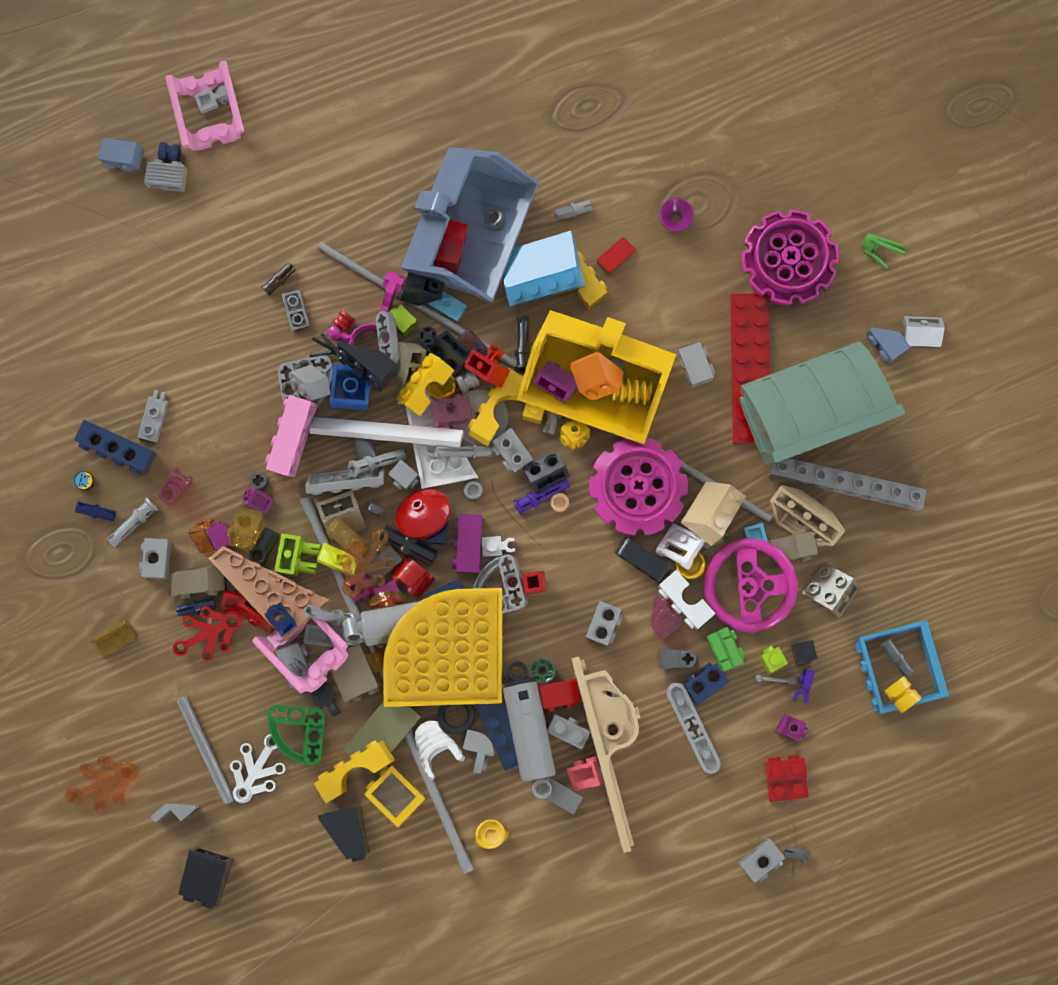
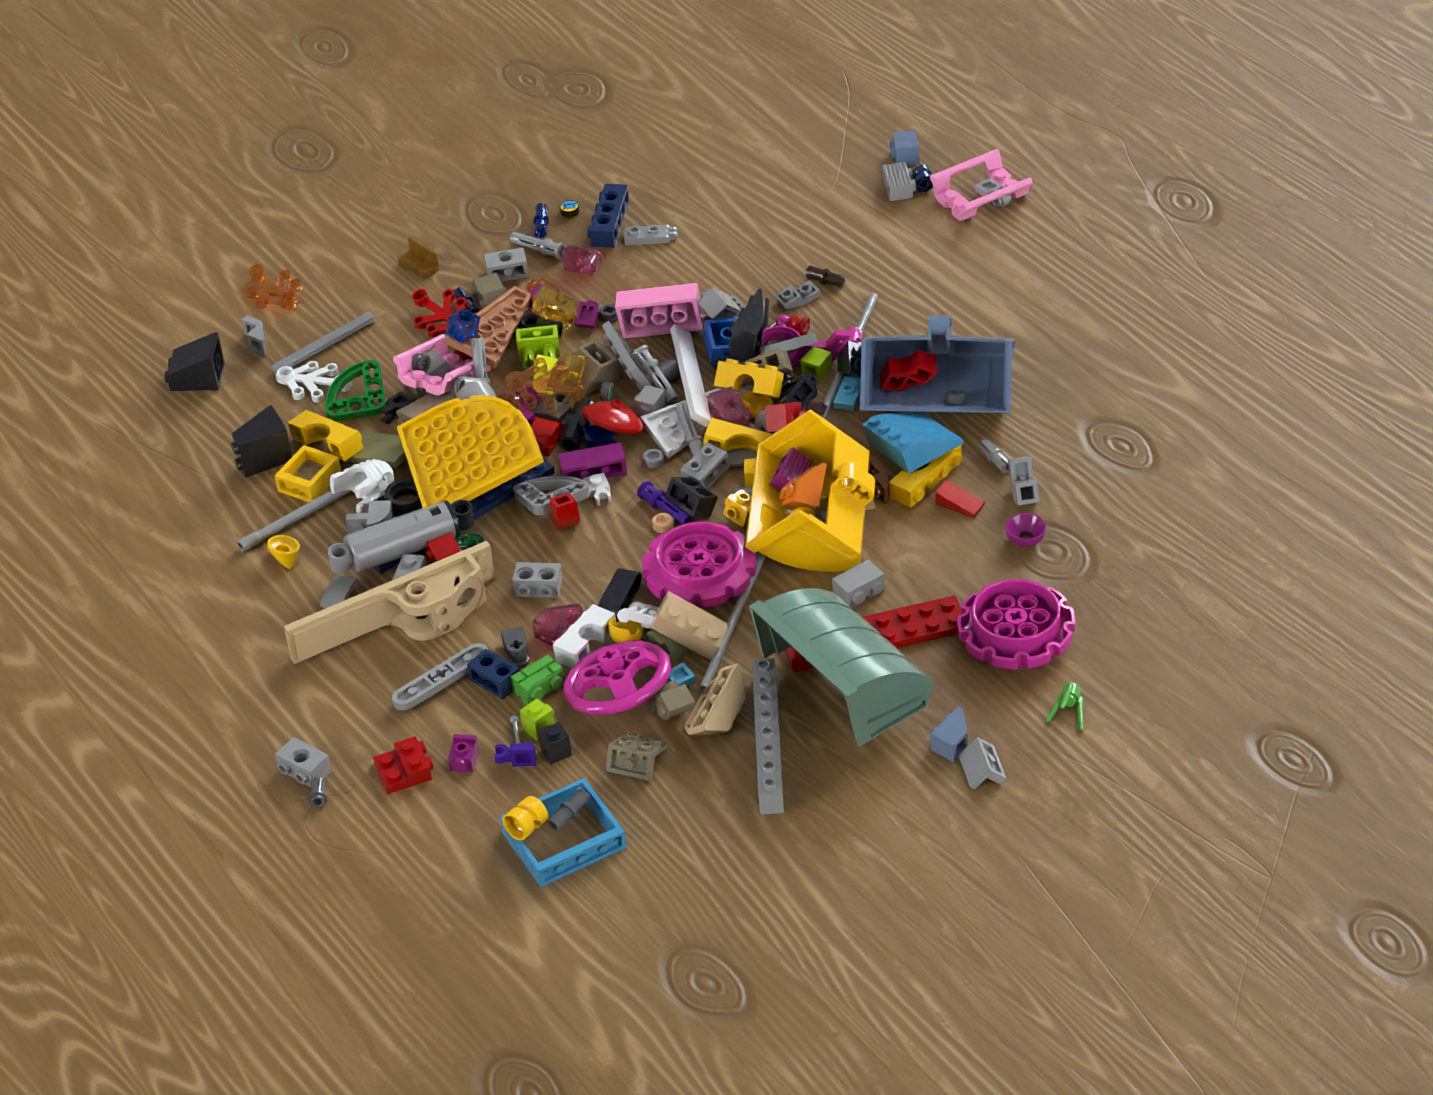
camera: 75 degrees right, 40 degrees down
(581, 311) = (881, 480): none -> reddish brown slope
(622, 200) = (1022, 483): none -> light grey brick

